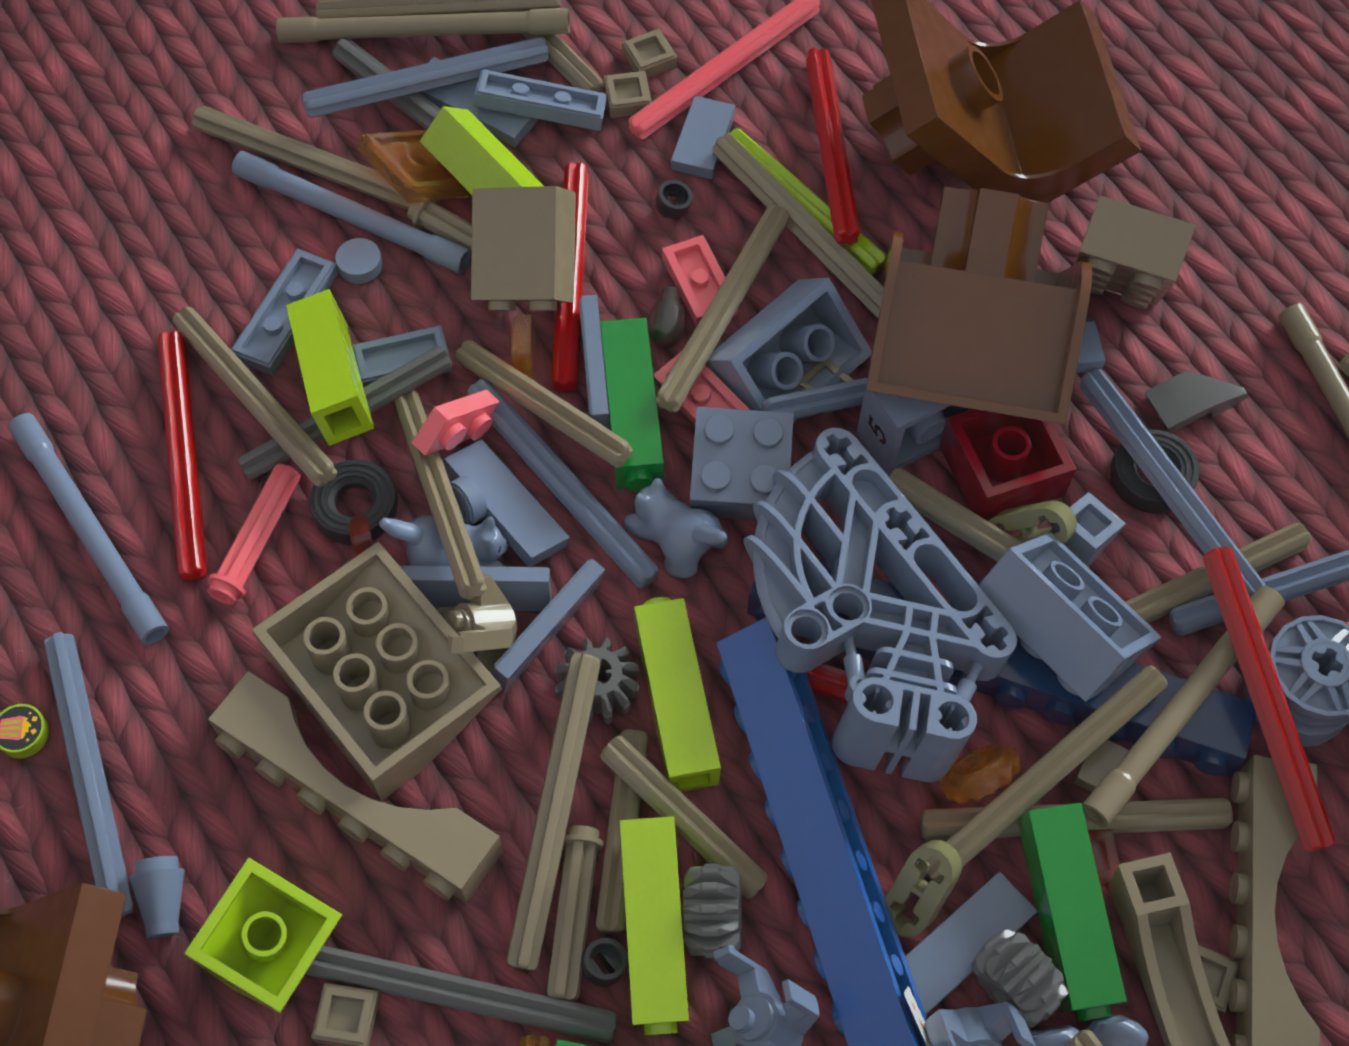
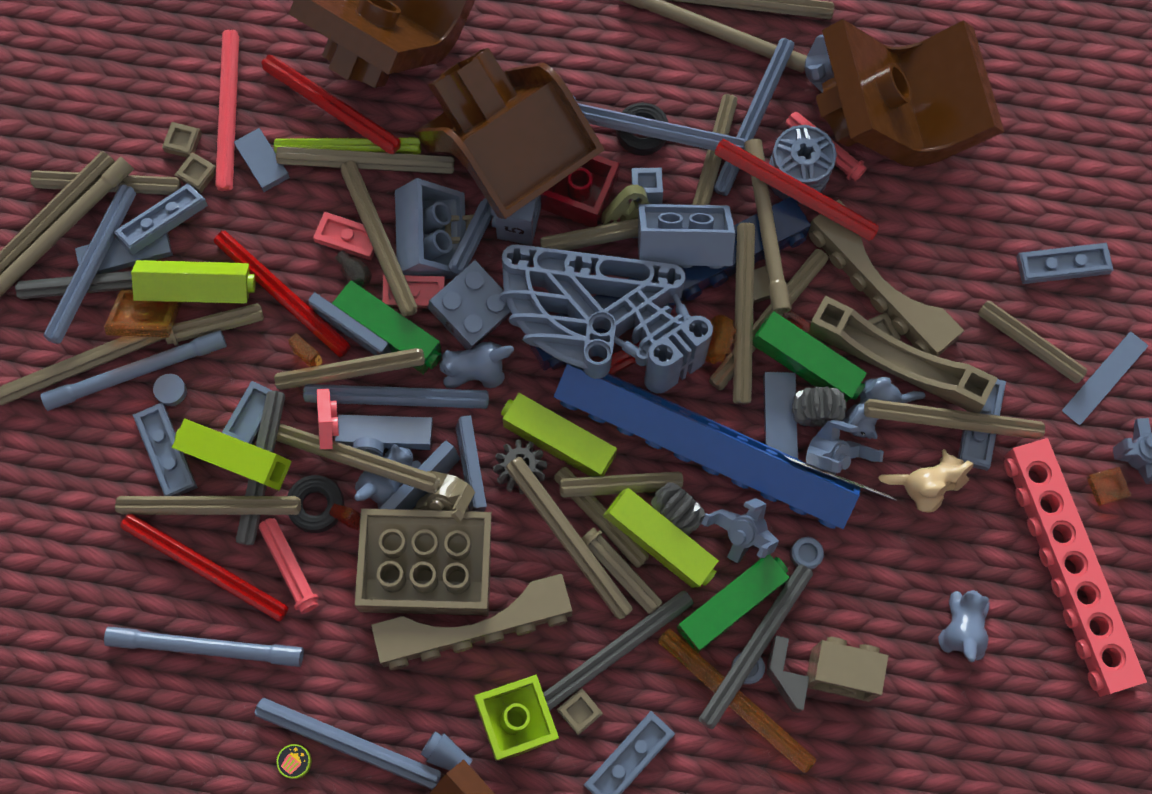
camera: 50 degrees left, 10 degrees up
(523, 247) = (255, 304): dark tan brick -> none
(613, 958) = (657, 571): black hinge -> none
(682, 199) = (290, 203): black hinge -> none
(931, 894) = (752, 410): olive beam -> none
(1134, 251) = (541, 36): dark tan brick -> none
(1190, 397) = (622, 78): dark grey slope -> none

